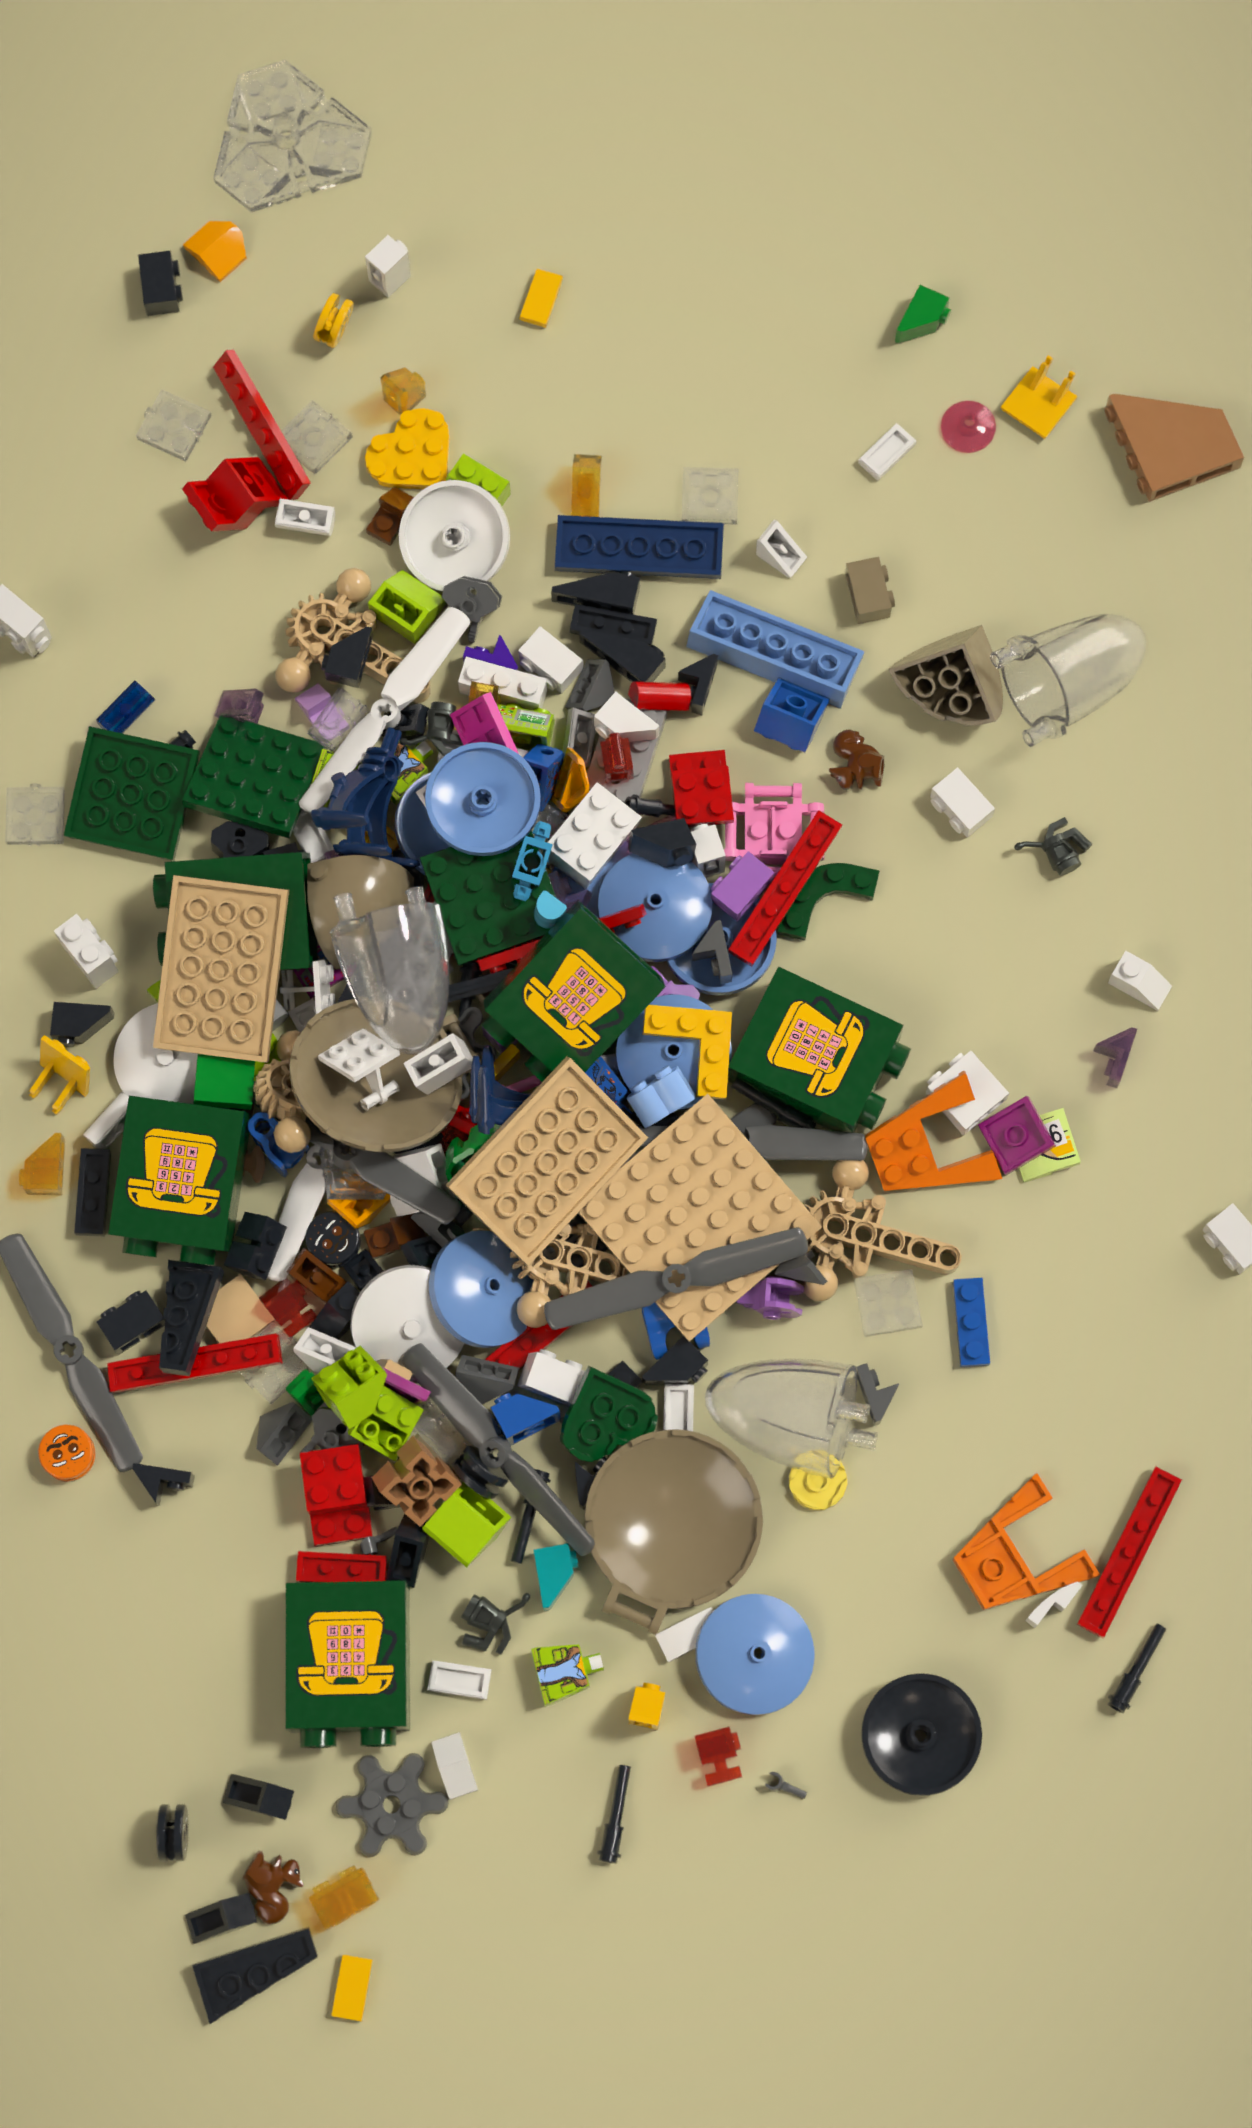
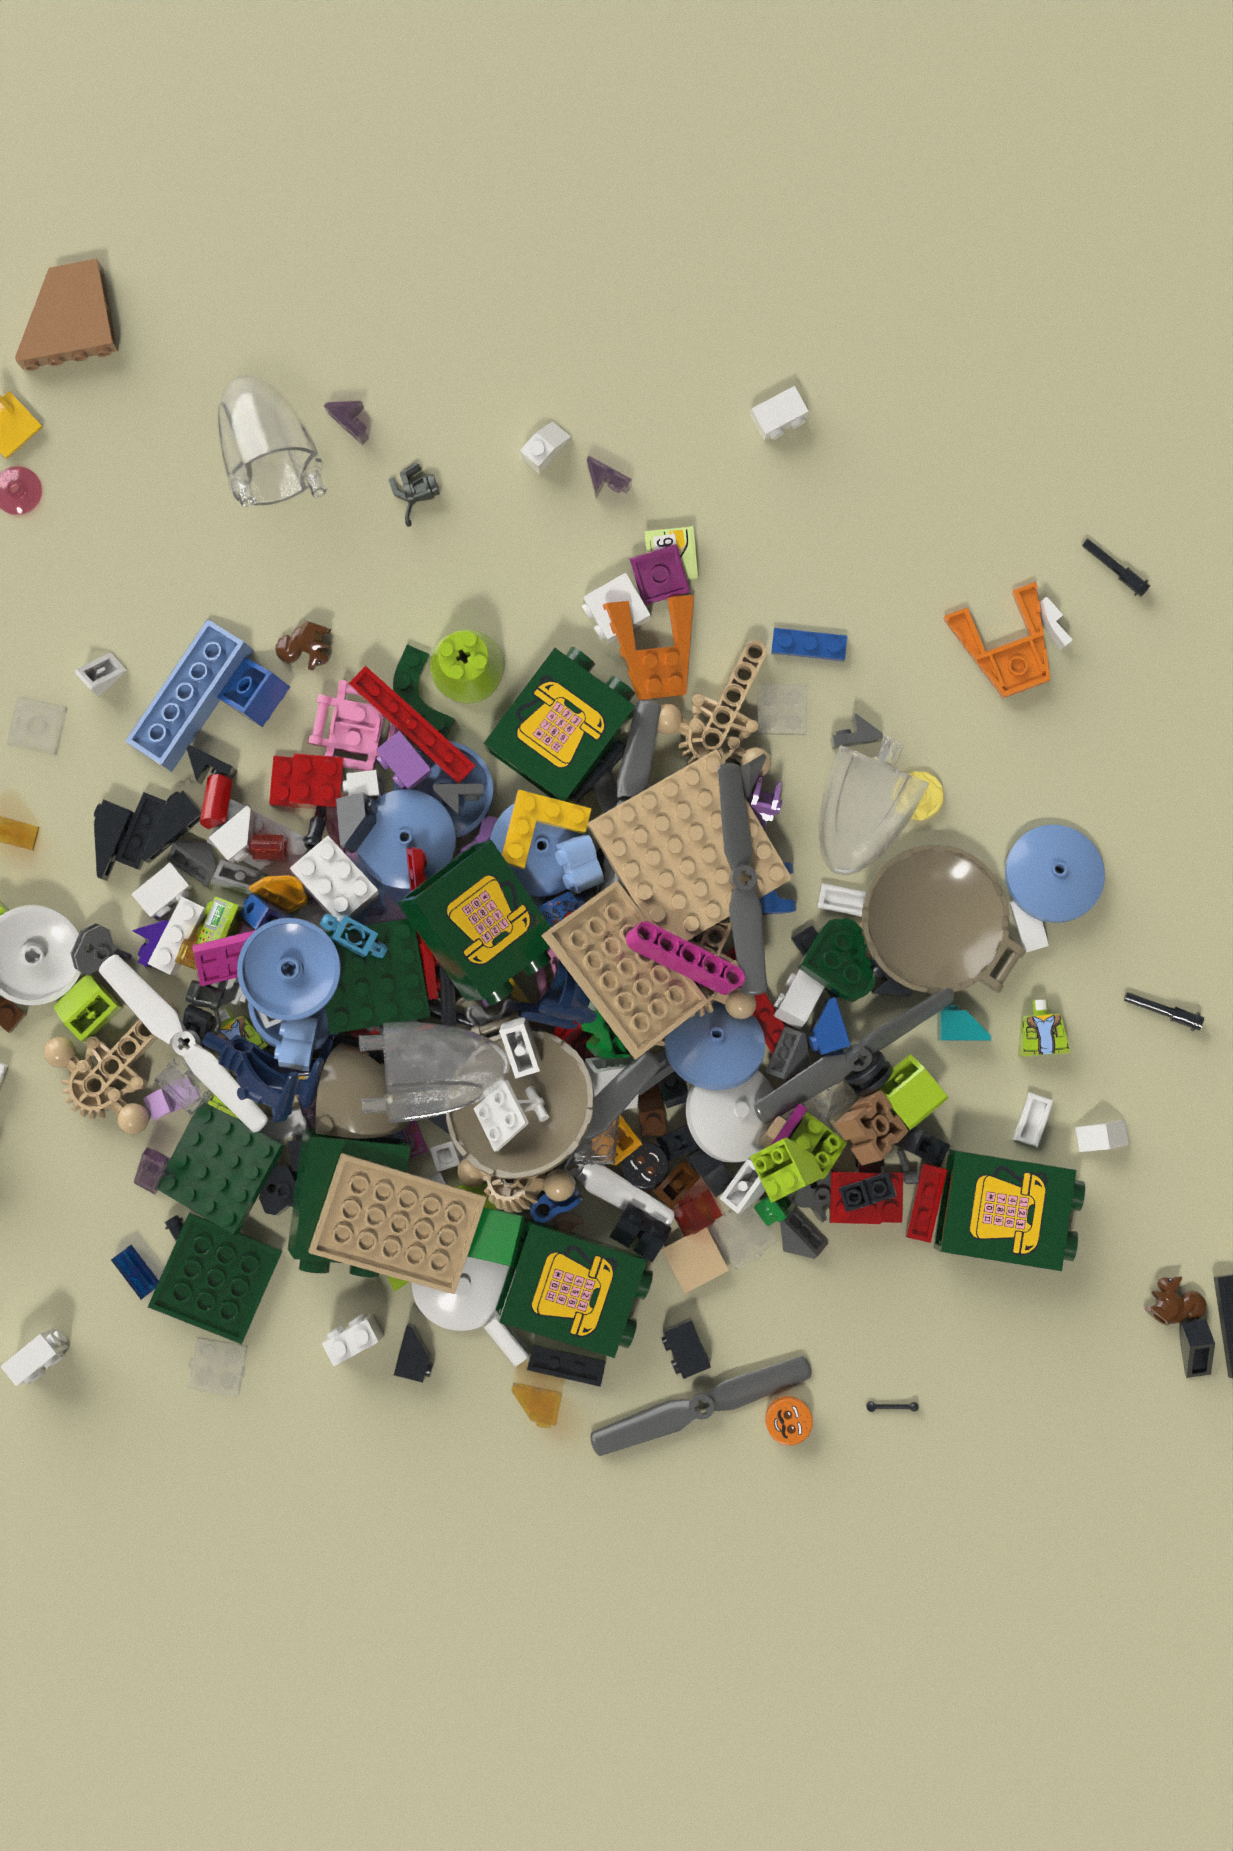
camera: 80 degrees left, 10 degrees up
(72, 1068) = (443, 1381): yellow plate -> none
(97, 1548) = (871, 1406): none -> black hinge
(155, 1477) = (823, 1350): black slope -> none
(172, 1834) = (1124, 1378): black head -> none
(188, 1308) = (686, 1298): black wing -> none
(209, 1361) = (733, 1300): red plate -> none
(258, 1796) = (1103, 1302): black slope -> none
(323, 975) = (434, 1138): white plate -> none
(341, 1486) = (867, 1191): none -> black slope
(344, 1897) = (1196, 1244): clear yellow brick -> none
(348, 658) = (130, 1067): black slope -> none
(404, 827) = (297, 1043): none -> light blue brick
(413, 1805) = (1109, 1201): dark grey plate -> none
(486, 1616) = (985, 1089): pearl dark grey piece -> none
(526, 1525) = (912, 1041): black pin -> none
(548, 910) = (402, 929): medium azure brick -> none
(576, 1241) = (674, 958): none -> dark pink beam
(639, 546) = (72, 795): dark blue plate -> none
(647, 1706) = (1085, 969): yellow slope -> none
(678, 1365) = (806, 892): black slope -> none
(715, 1749) = (1126, 919): clear red brick -> none
(786, 1786) = (1163, 869): dark grey hand -> none
(868, 590) = (152, 604): dark tan piece -> none
(868, 941) = (468, 681): none -> lime cone
(887, 452) = (27, 564): white tile -> none
(950, 1728) = (1161, 736): black dish -> none
(953, 678) = (249, 547): dark tan brick -> none
(961, 803) = (360, 563): white brick -> none
(1127, 755) = (344, 415): none -> clear purple slope
(1129, 1552) = (1021, 554): red plate -> none

